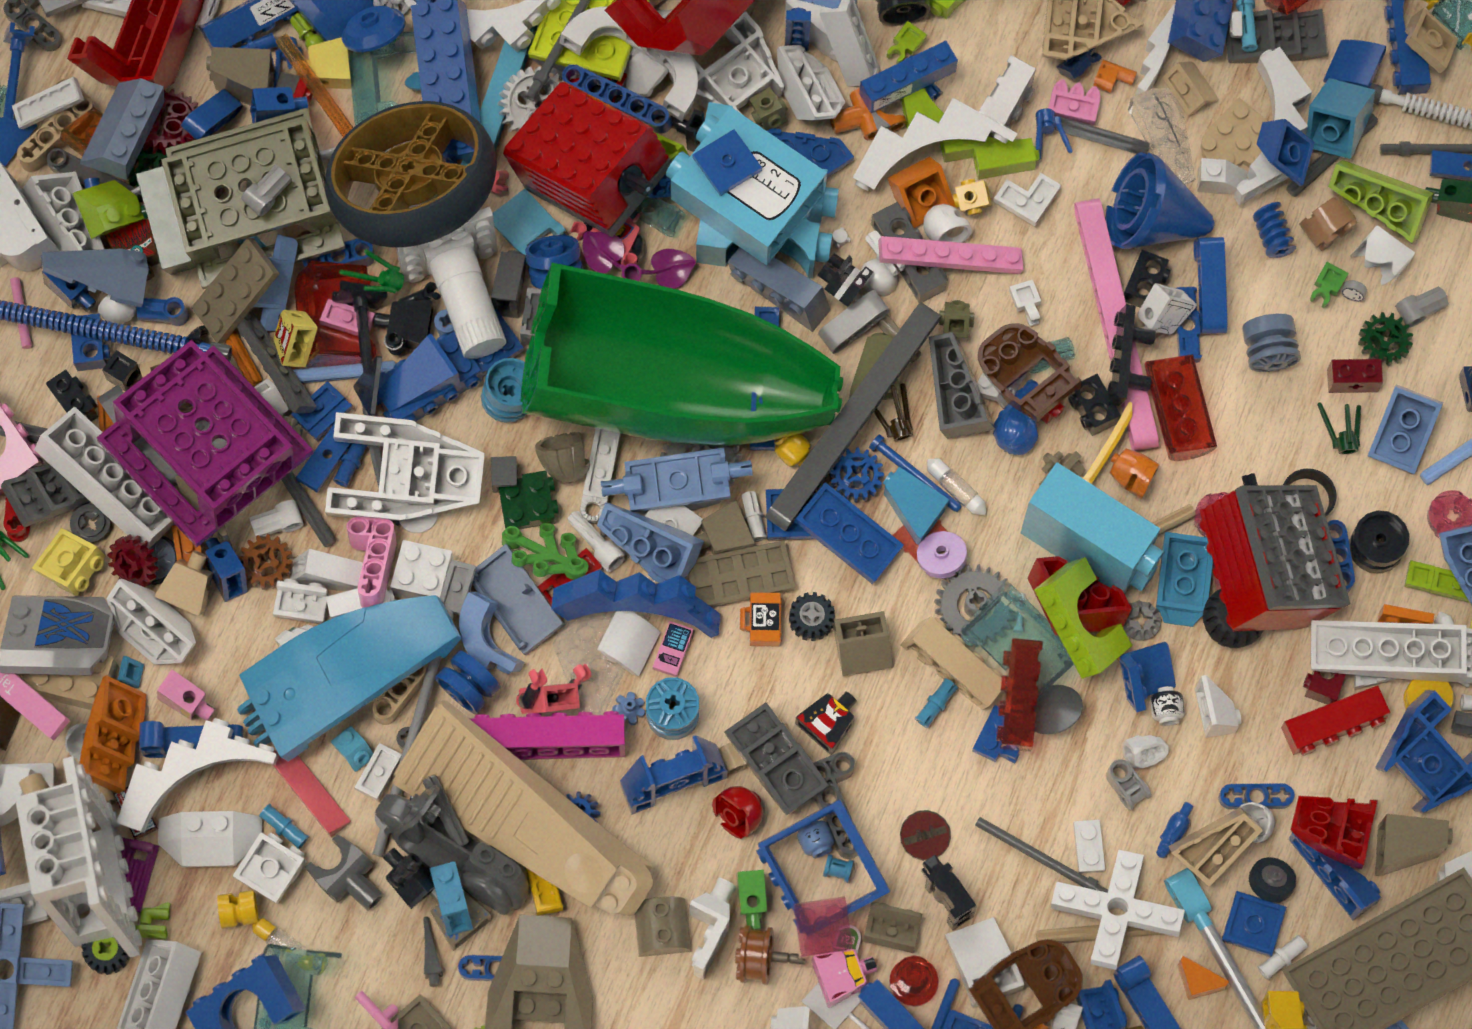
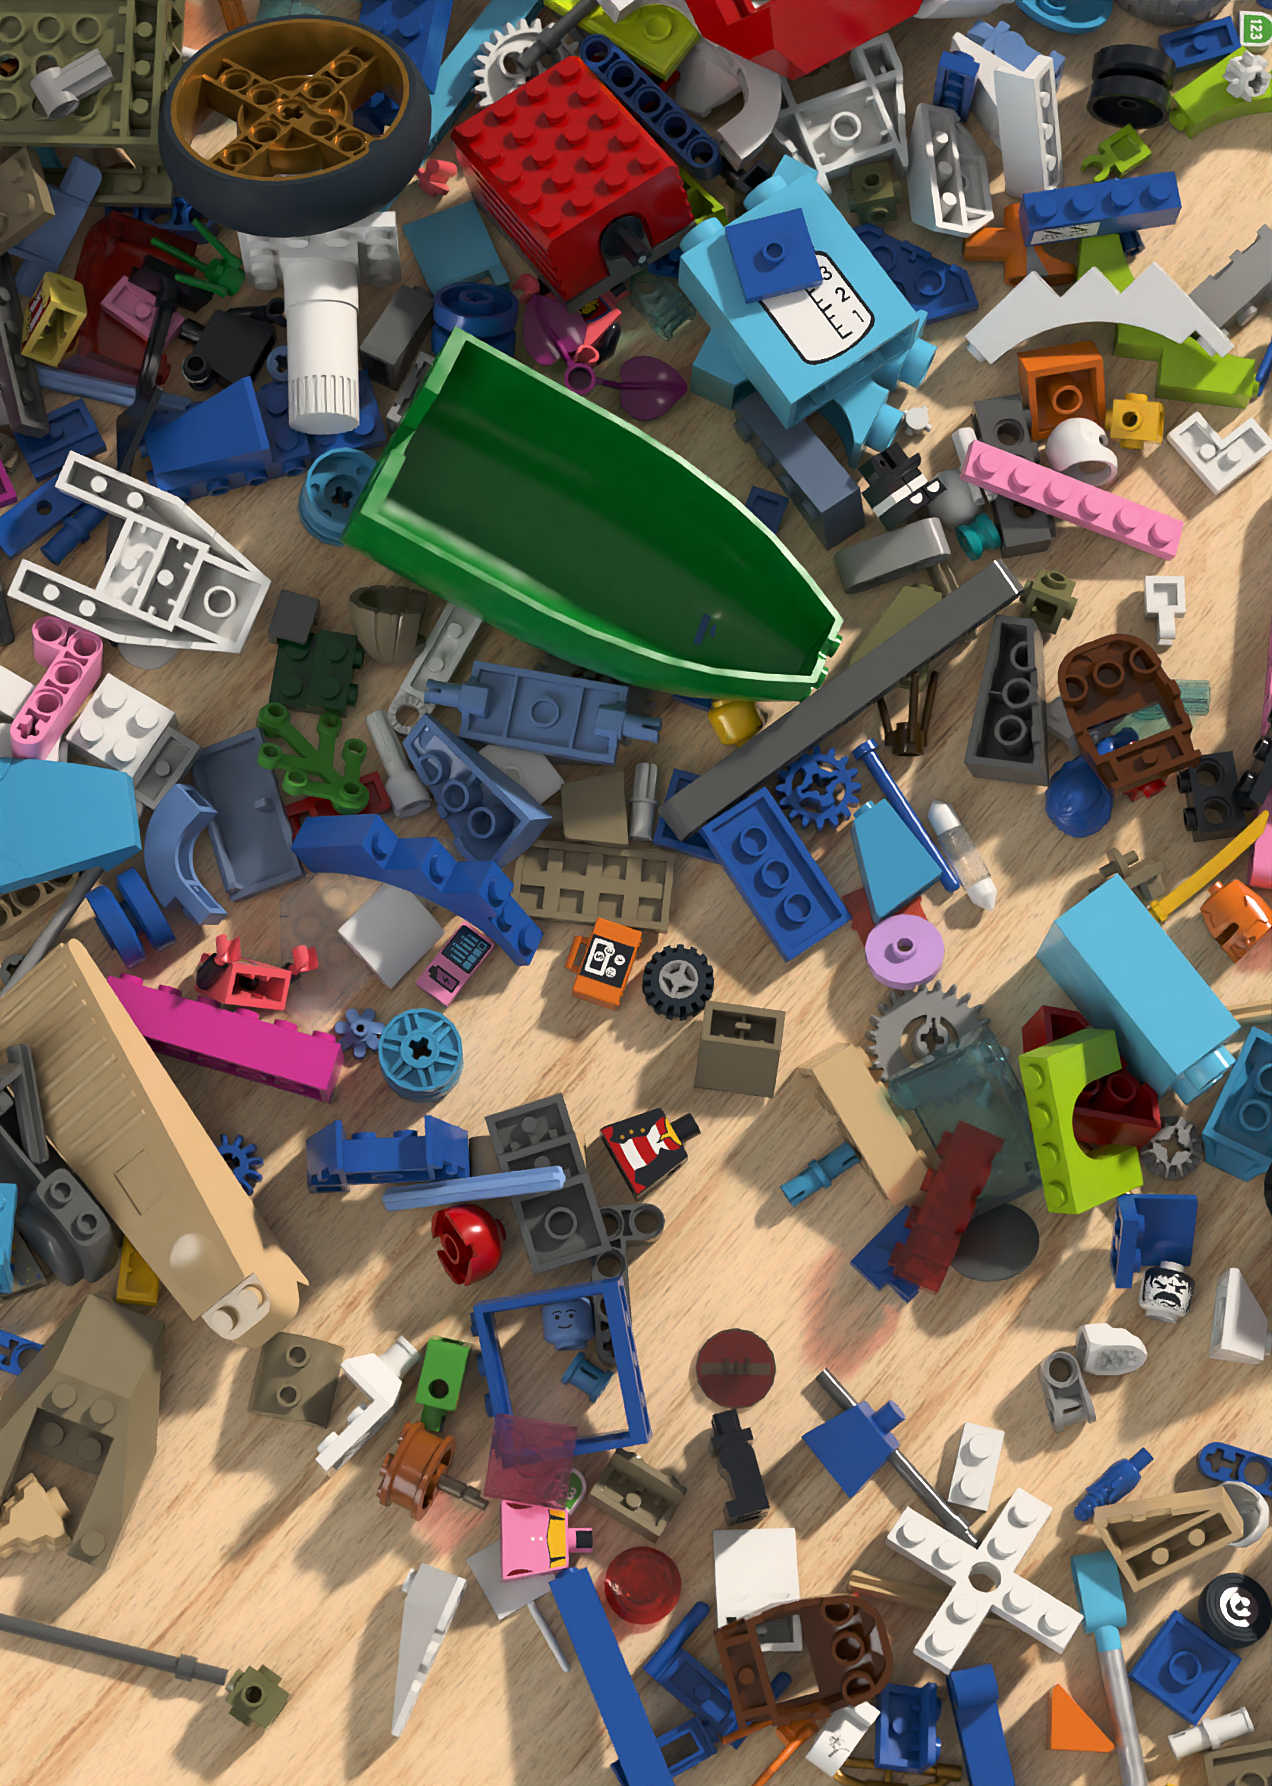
camera: 15 degrees right, 5 degrees up
(732, 776) = (474, 1188): none -> light blue axle
(901, 294) = (978, 536): none -> teal wheel
(1013, 854) = (856, 1443): none -> blue torso

